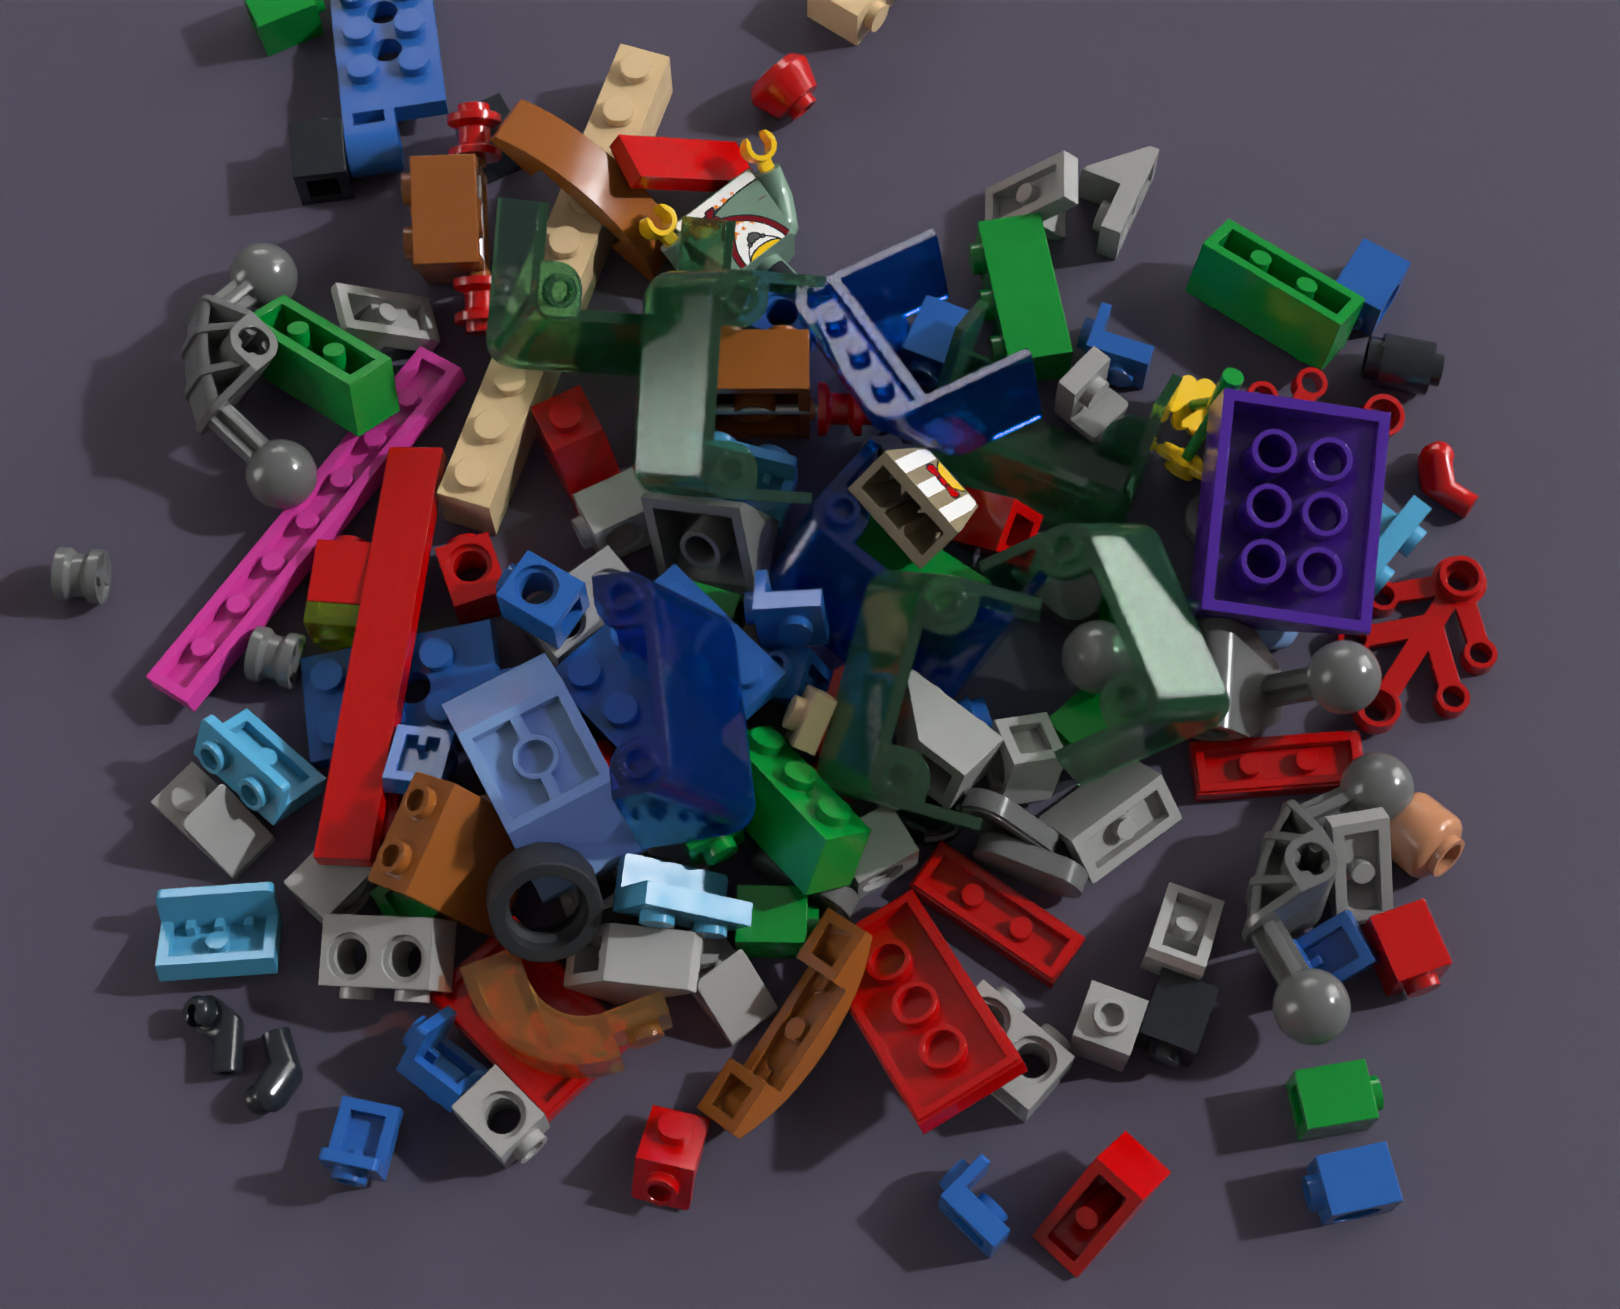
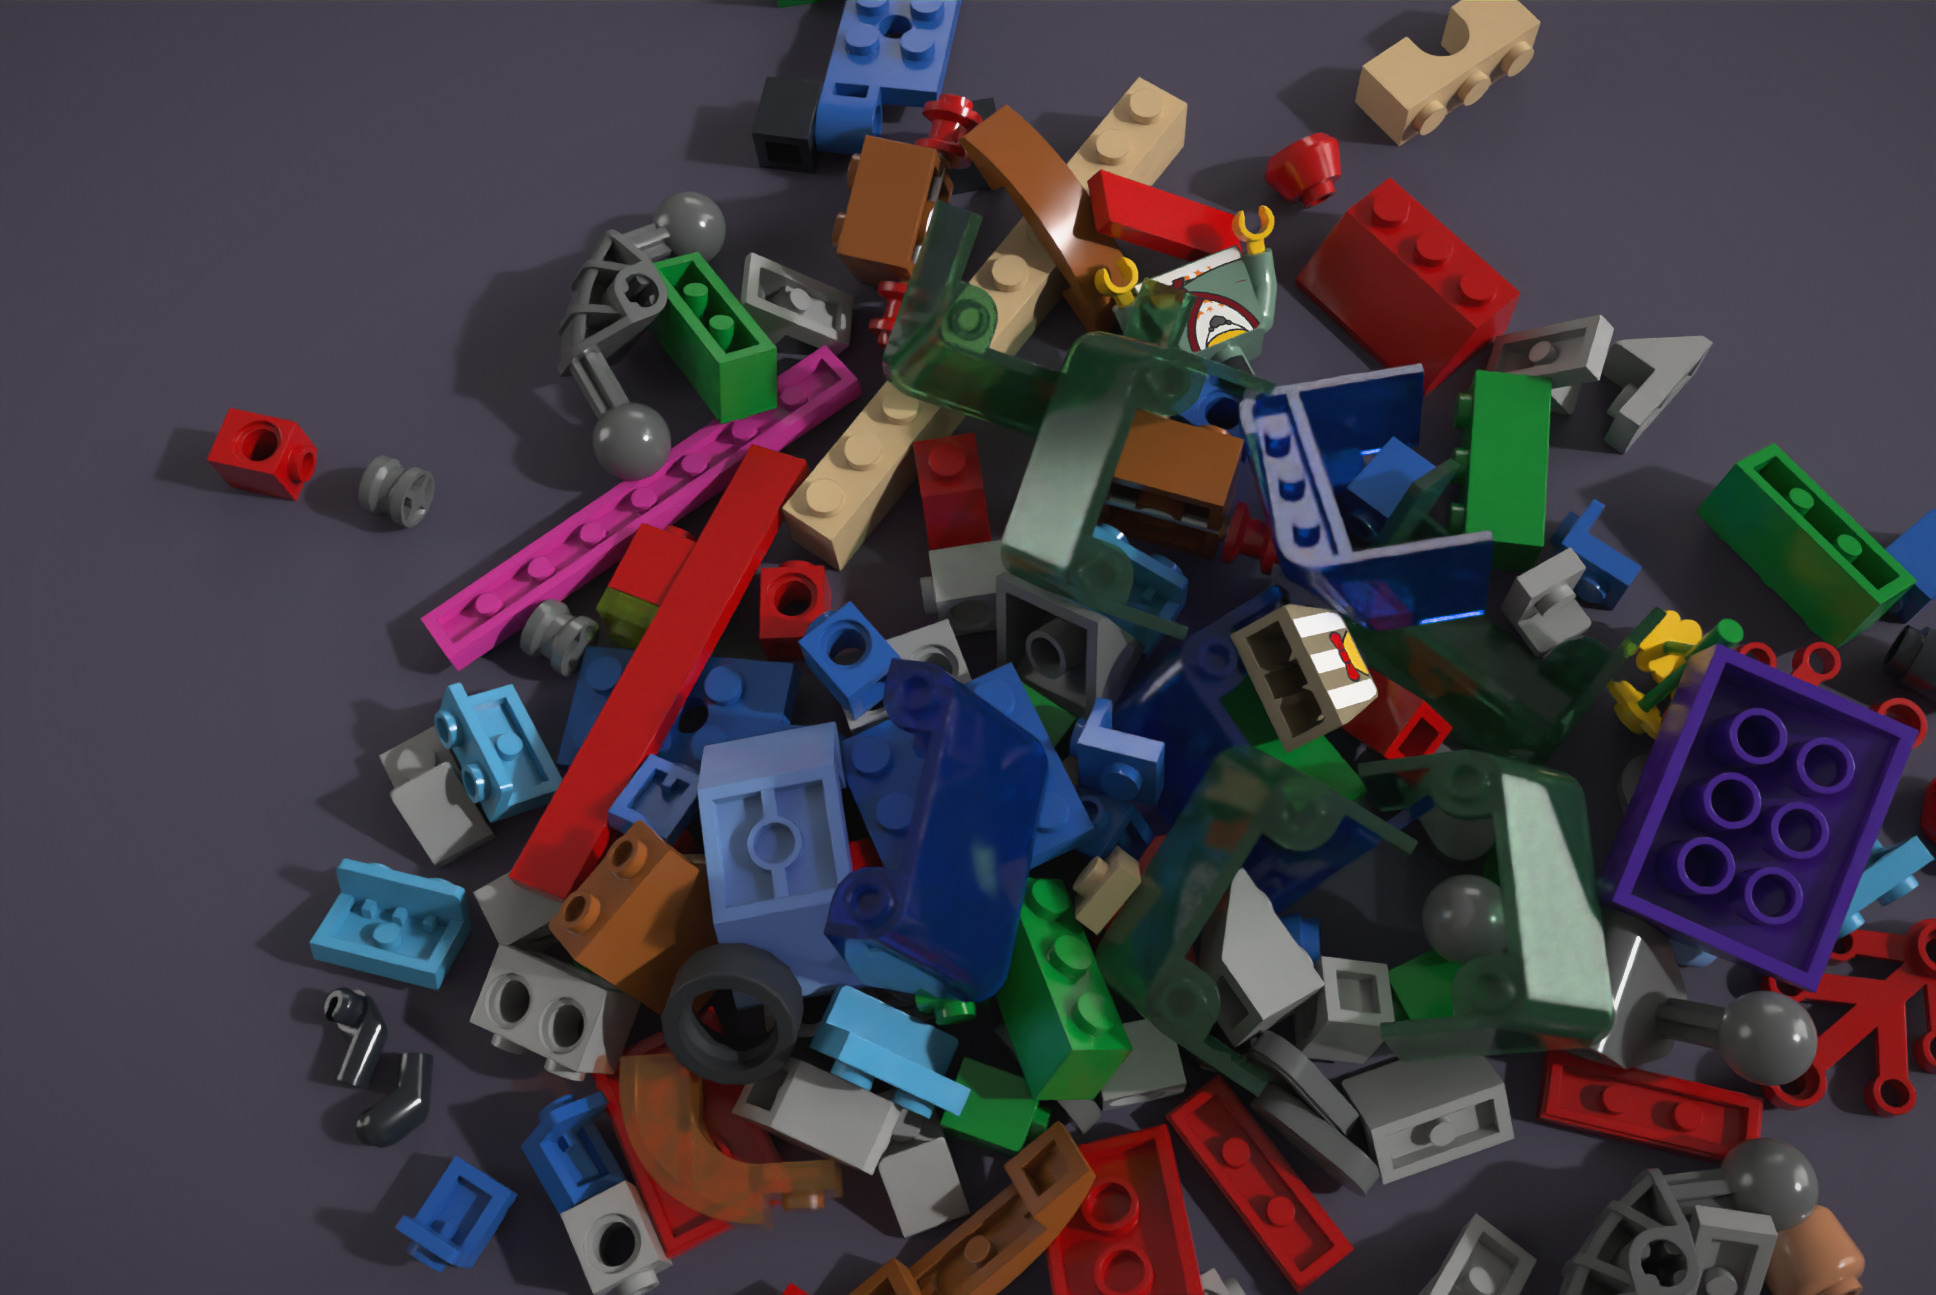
camera: 25 degrees right, 0 degrees up
(899, 166) = (1407, 286): none -> red slope

